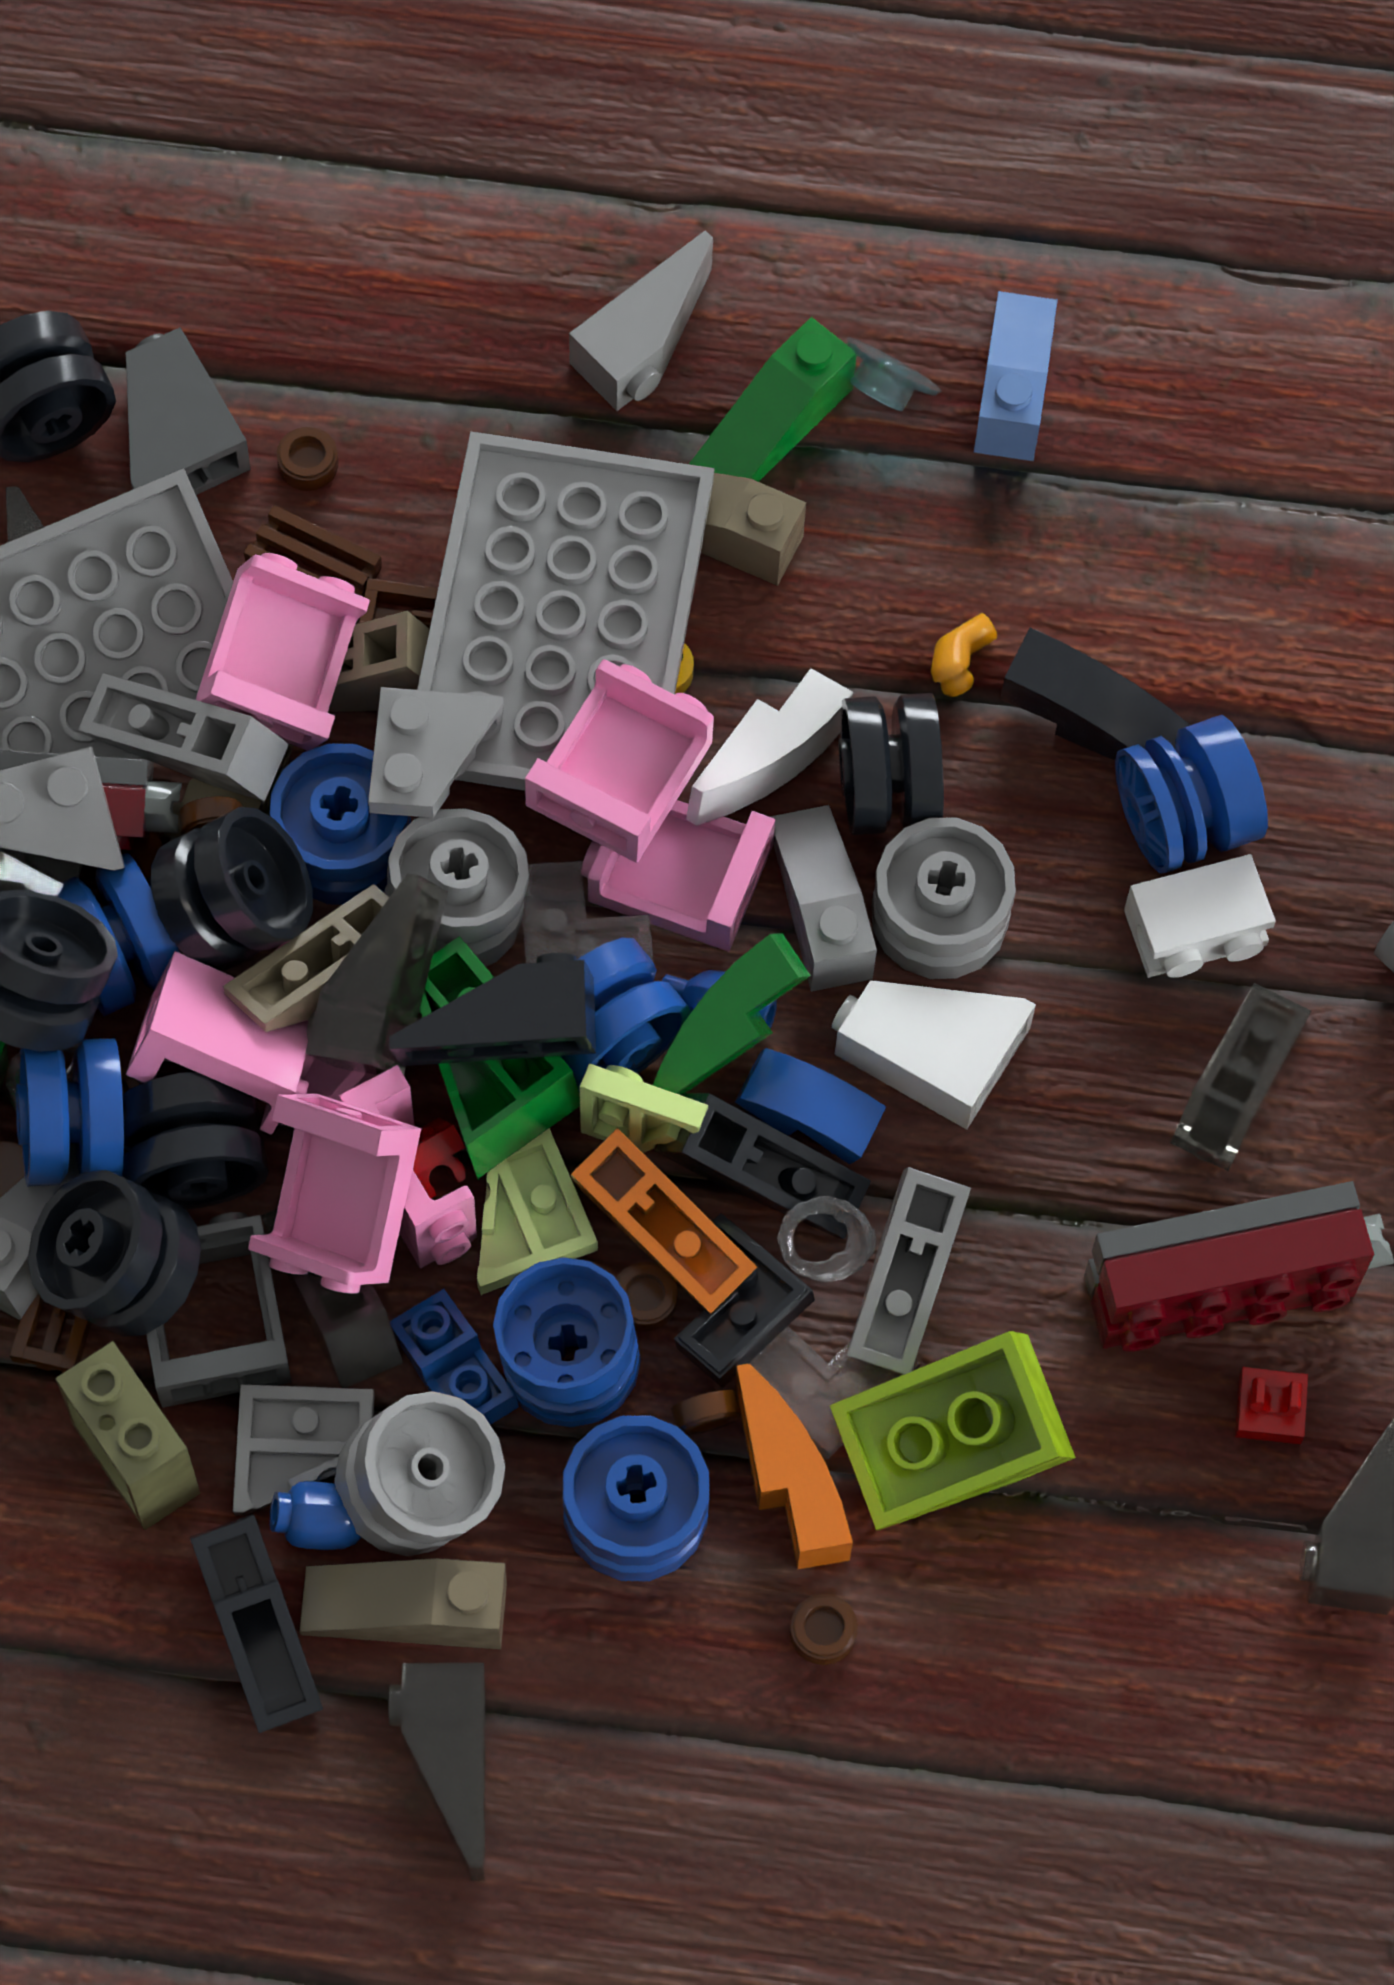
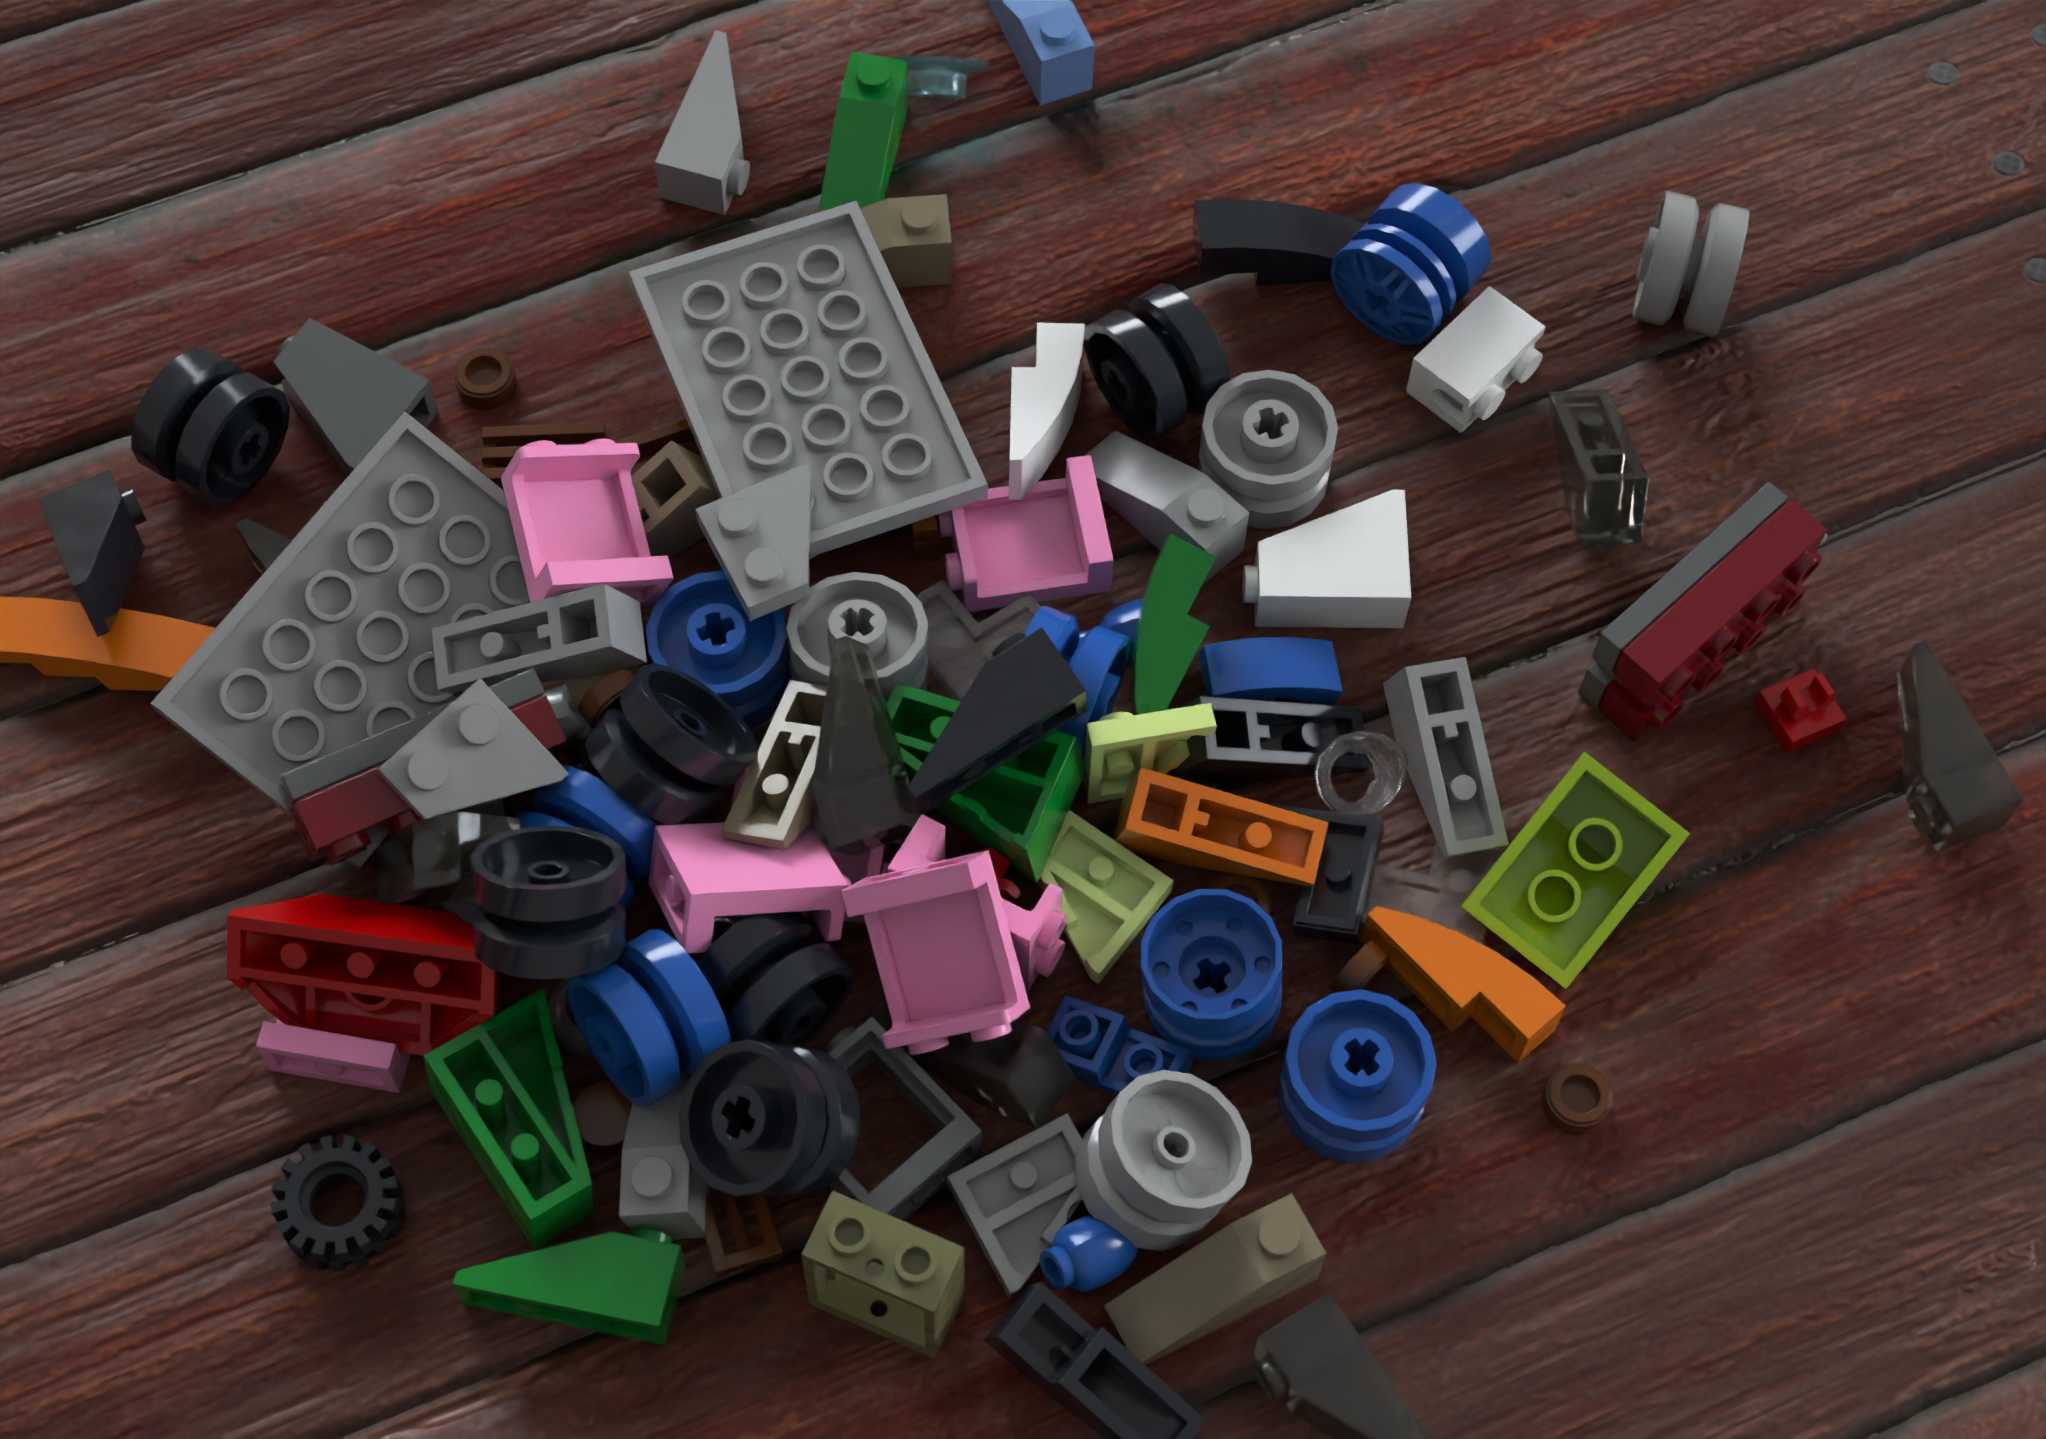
camera: 30 degrees left, 5 degrees down
(622, 760) = (944, 462): bright pink panel -> none
(954, 652) = (1135, 258): light orange arm -> none

